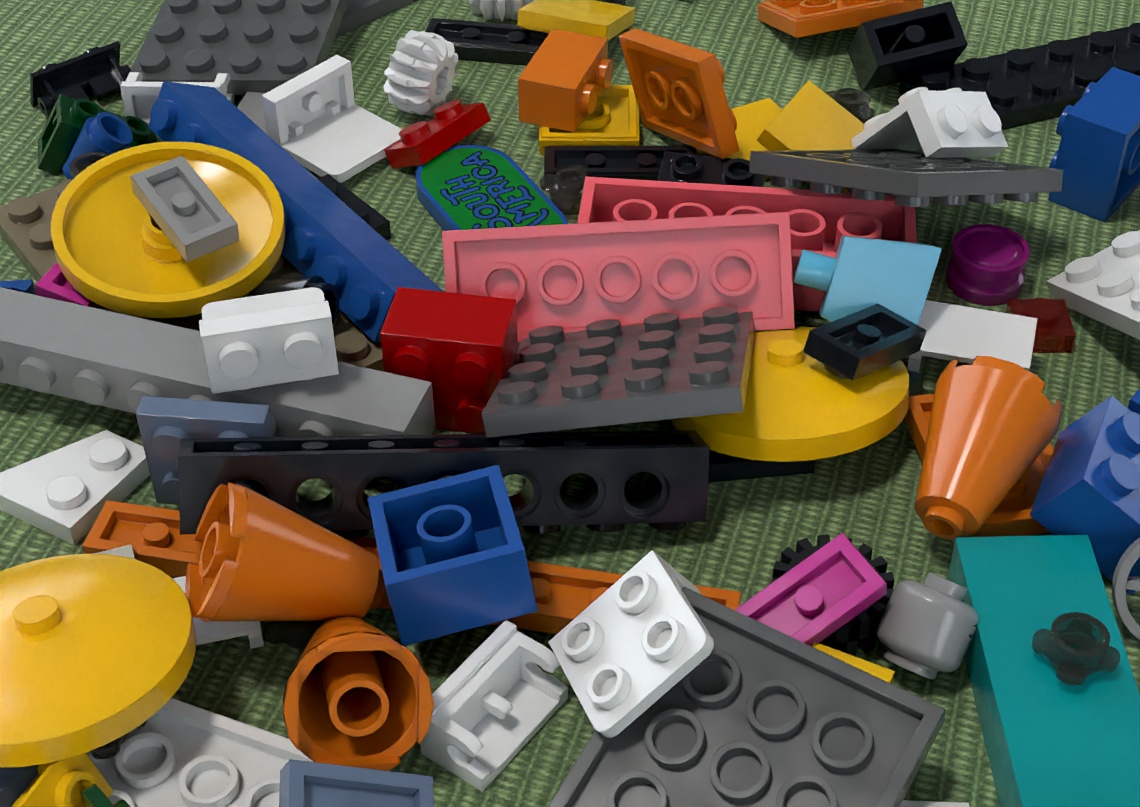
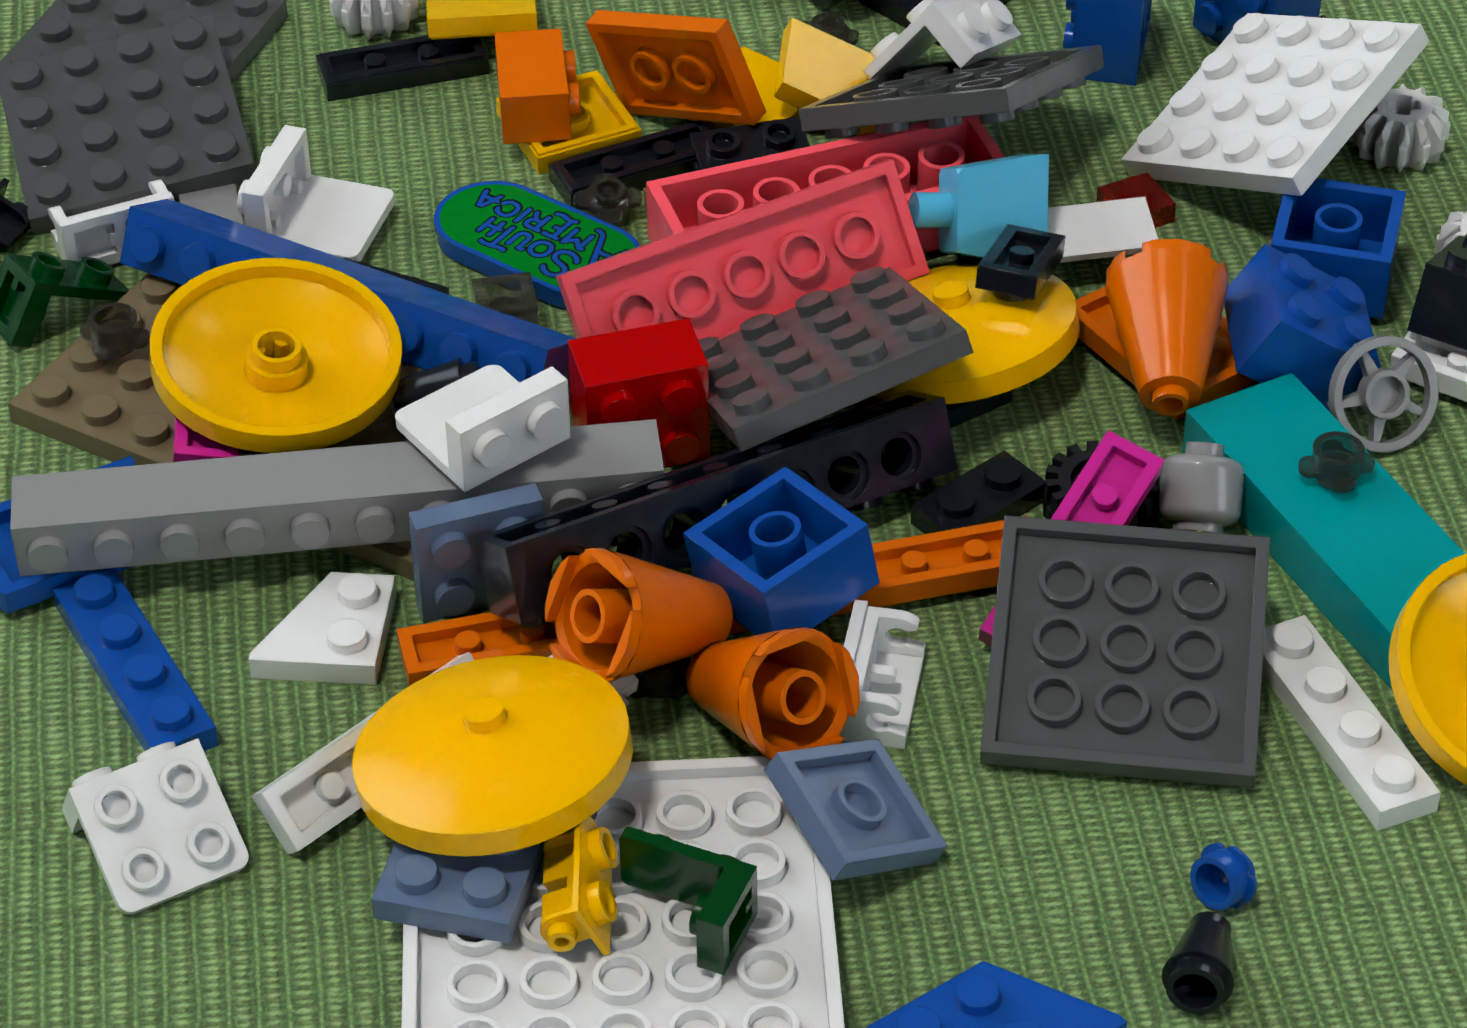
camera: 25 degrees left, 0 degrees up
(100, 134) = (82, 292): blue cone -> none
(185, 208) = (299, 327): light grey plate -> none
(420, 72) = (371, 120): white gear -> none
(423, 245) = (508, 294): none -> clear smoke plate
(428, 139) = (428, 182): red plate -> none
(632, 644) = (988, 576): white bracket -> none
(722, 556) = (980, 496): none -> black plate
(987, 264) = (1071, 152): magenta wheel -> none

